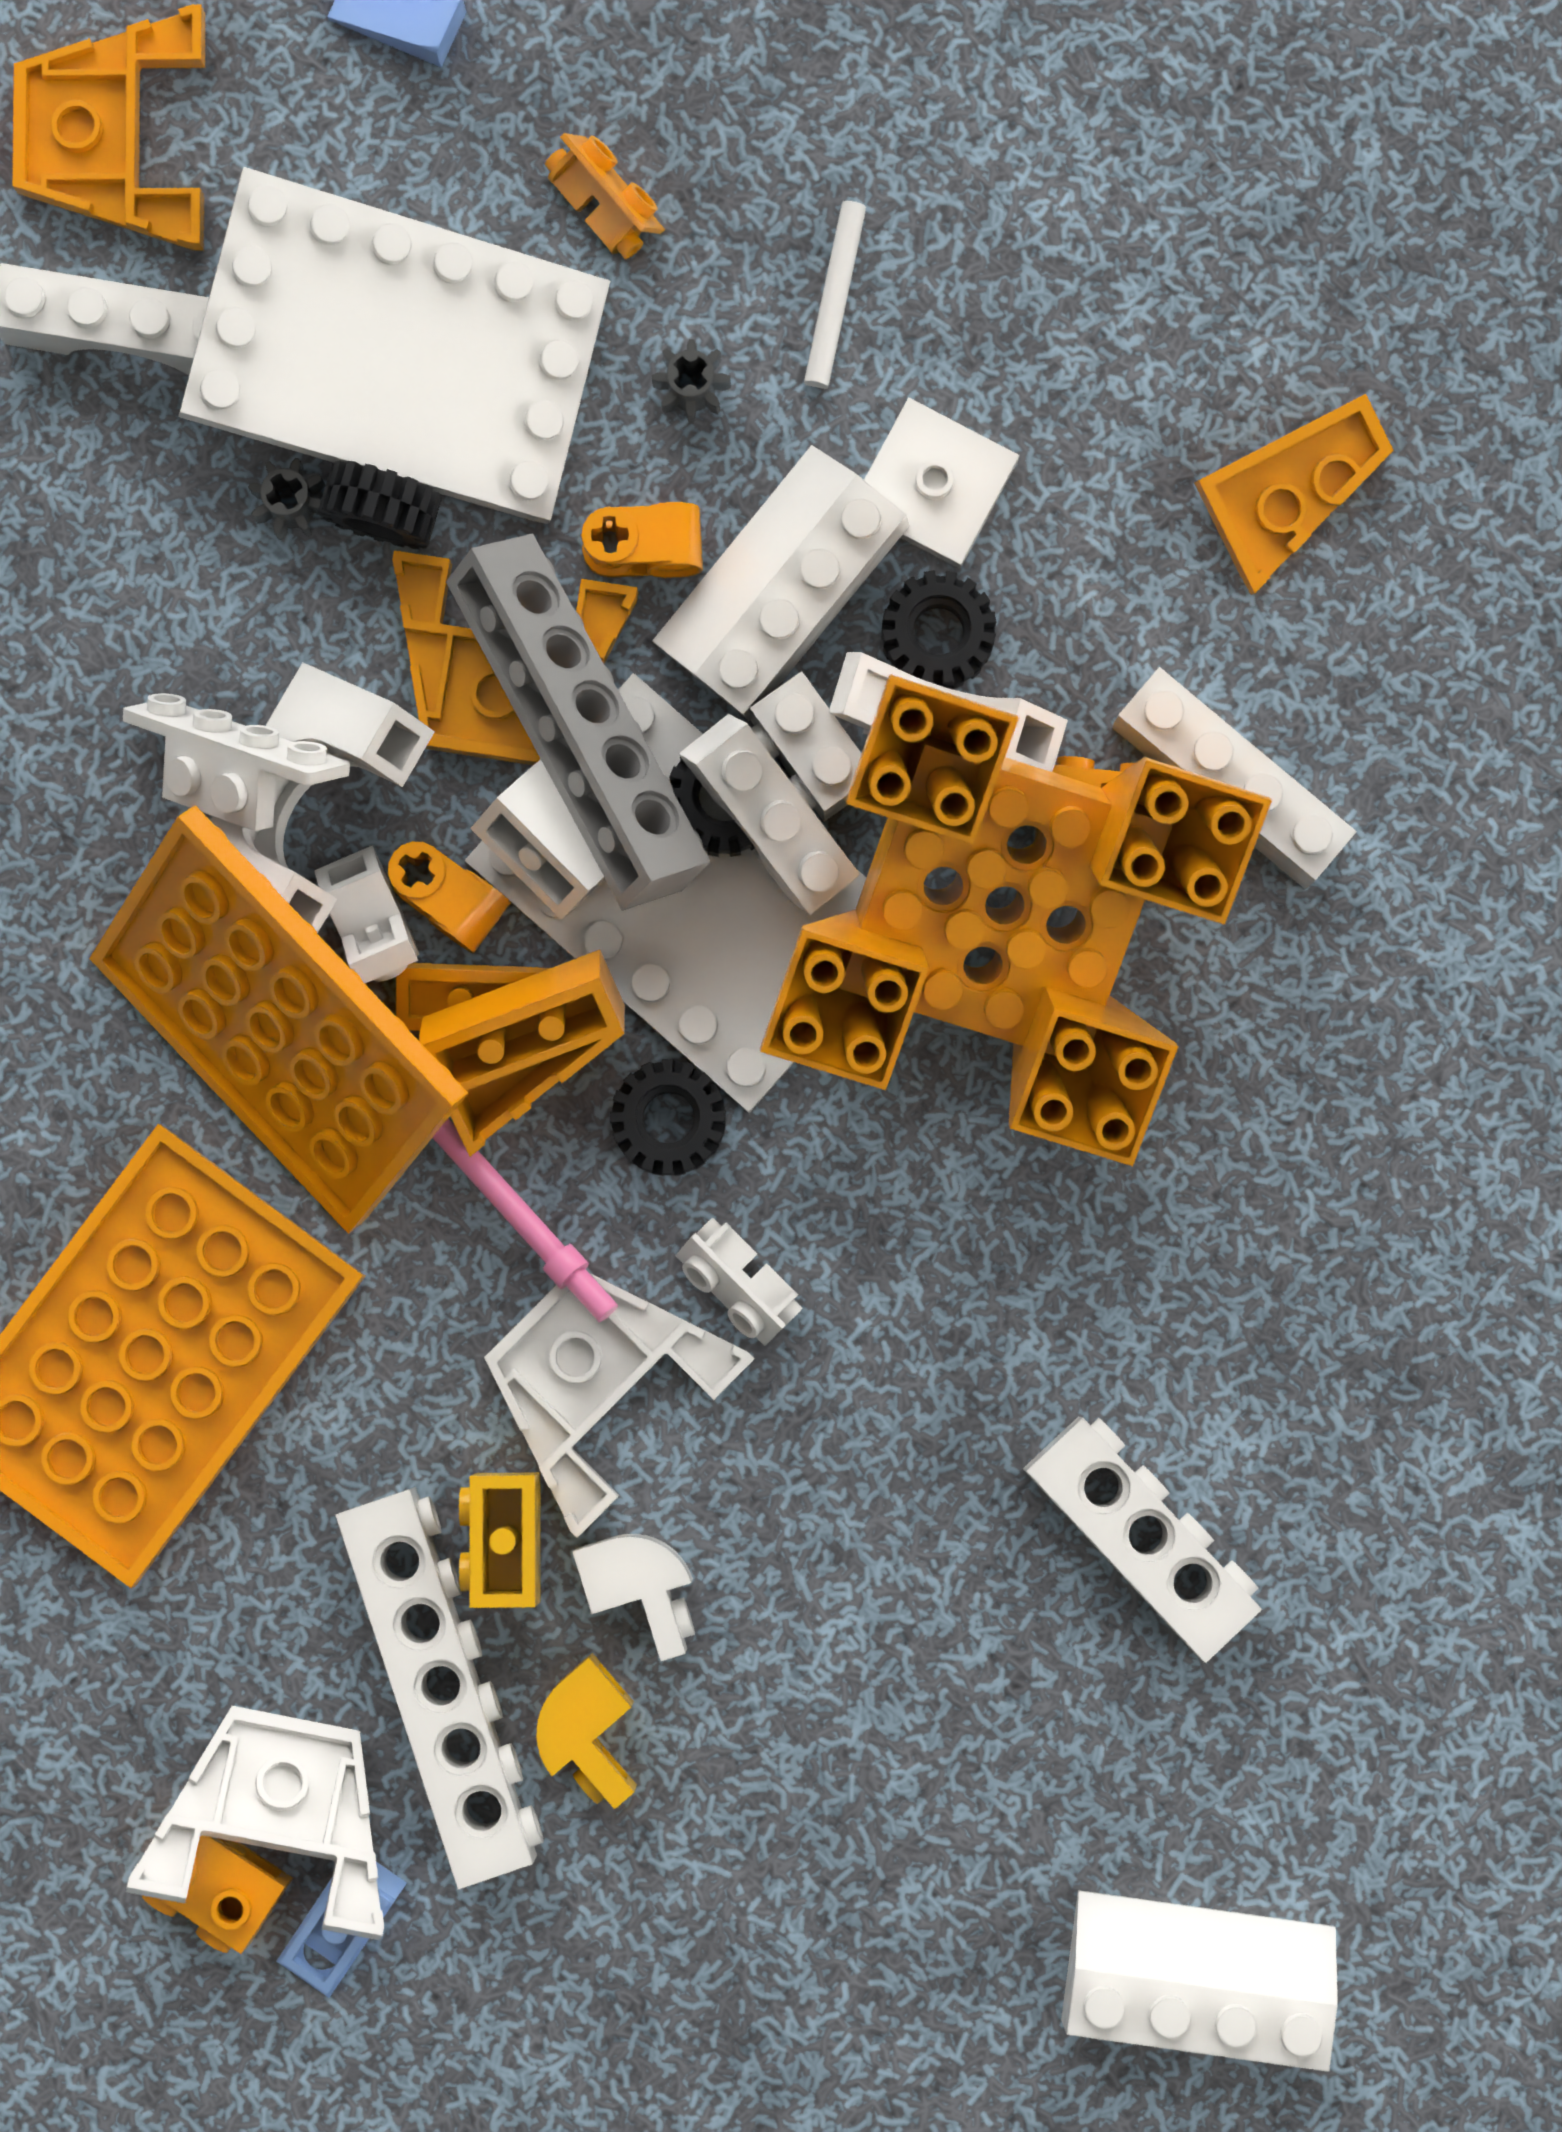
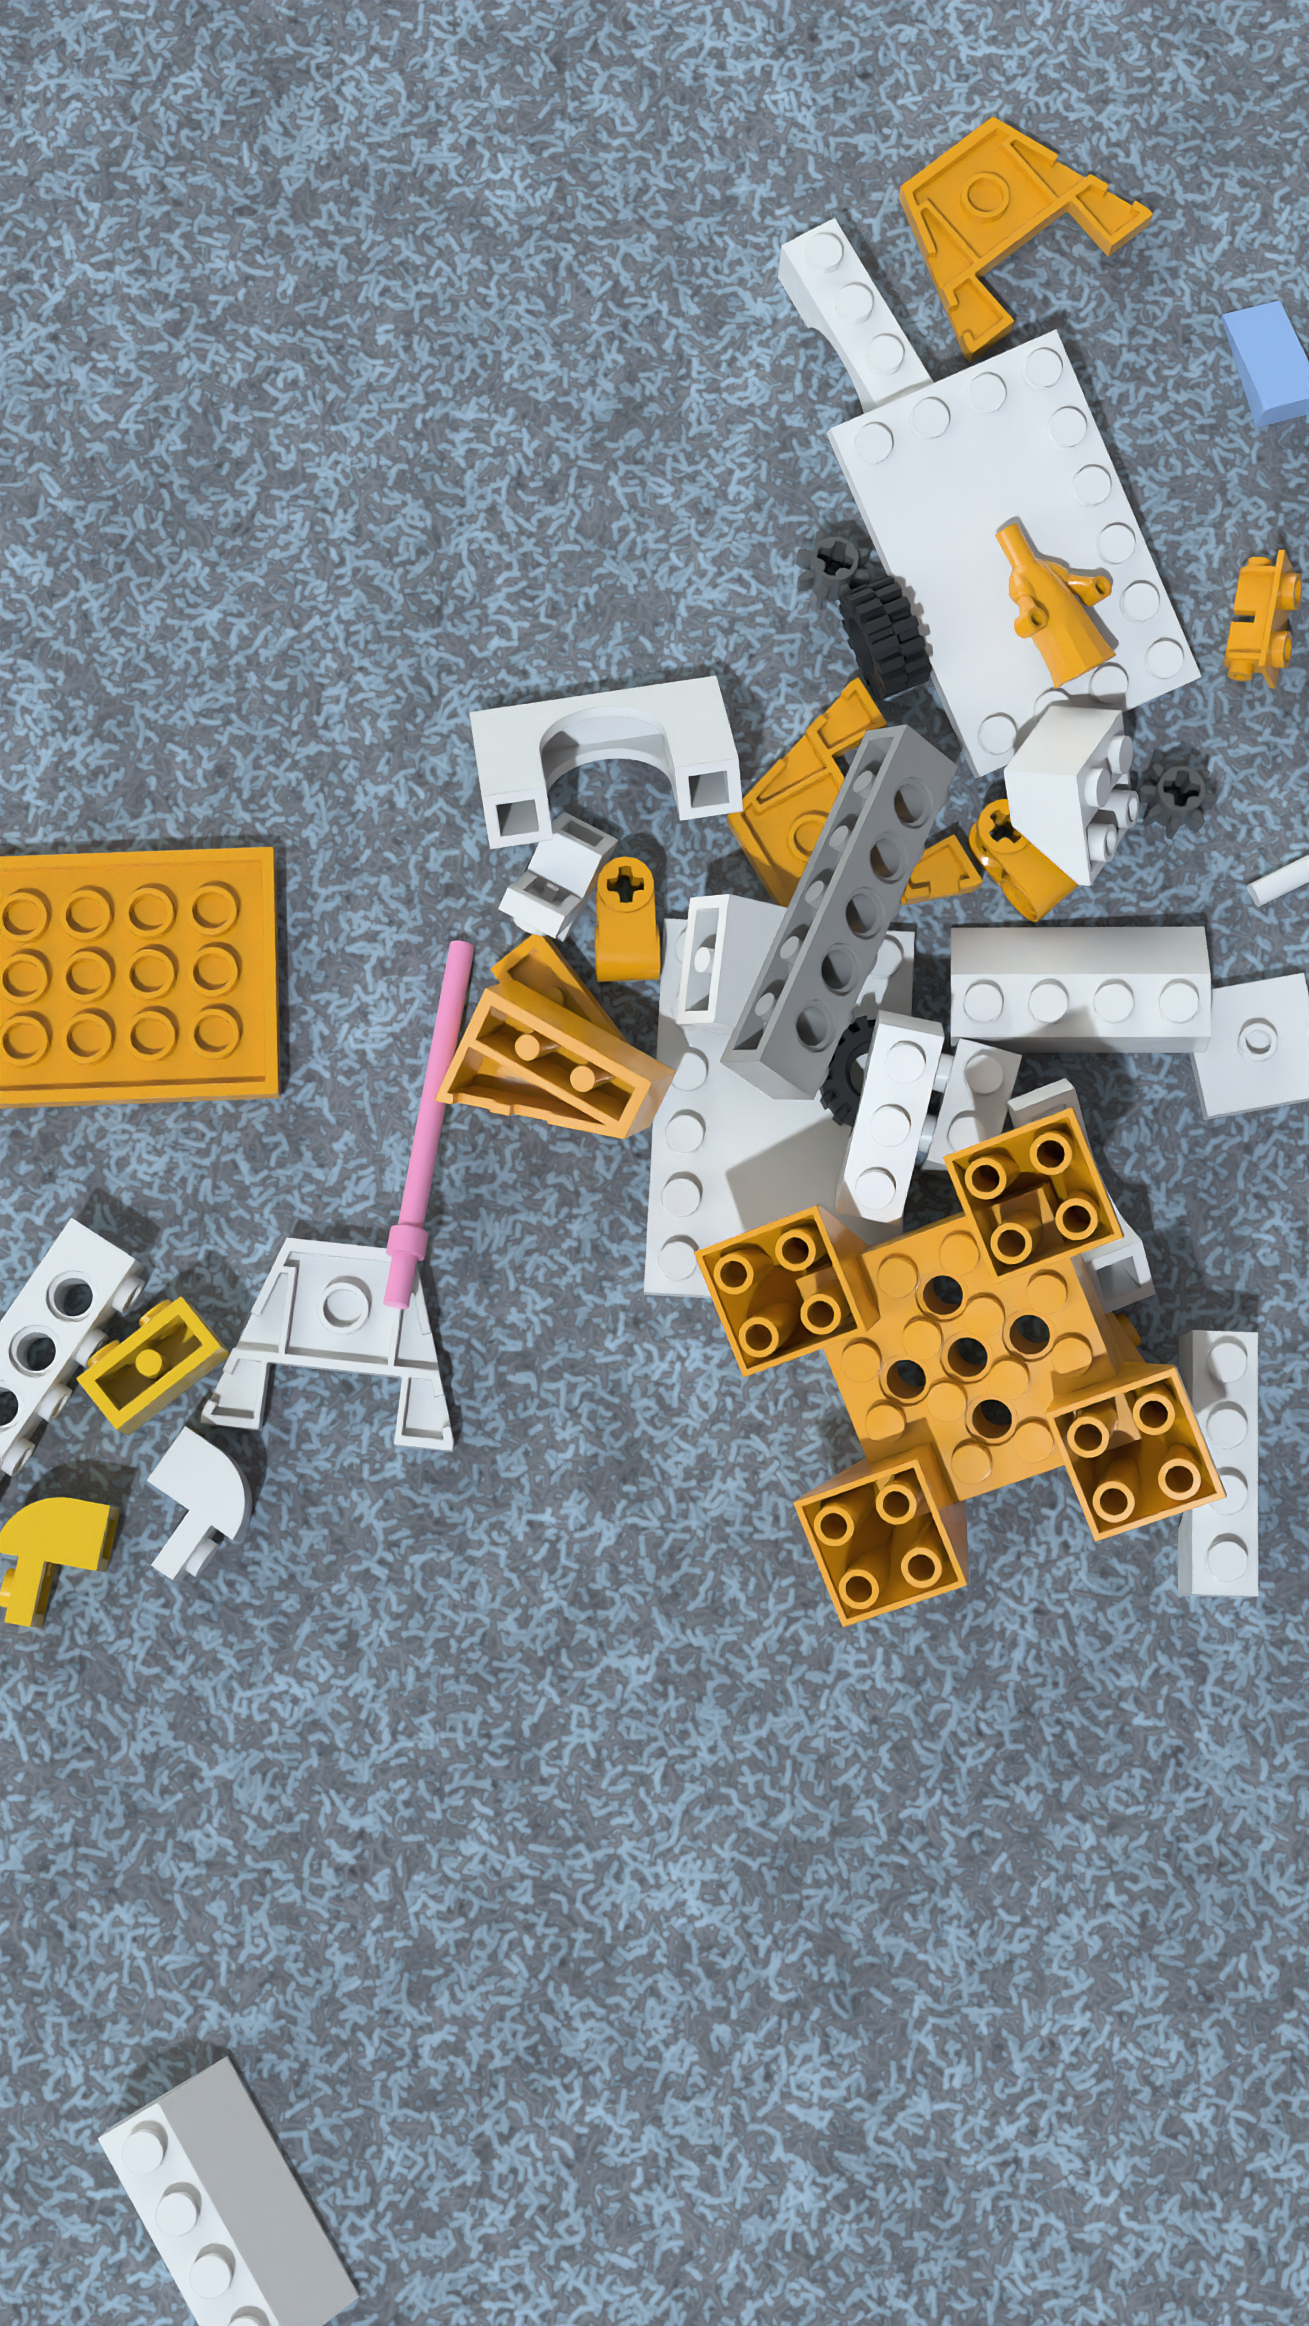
camera: 45 degrees right, 5 degrees down
(228, 765) = (589, 679): white bracket -> none
(275, 1021) = (420, 867): light orange plate -> none
(469, 358) = (1052, 612): none -> light orange piece
(623, 457) = (1074, 788): none -> white slope
(660, 1079) = (589, 1194): black tyre -> none
(756, 1304) = (504, 1360): white hinge -> none
(942, 593) = (1173, 1119): black tyre -> none
(1201, 1622) = (521, 1982): white brick -> none

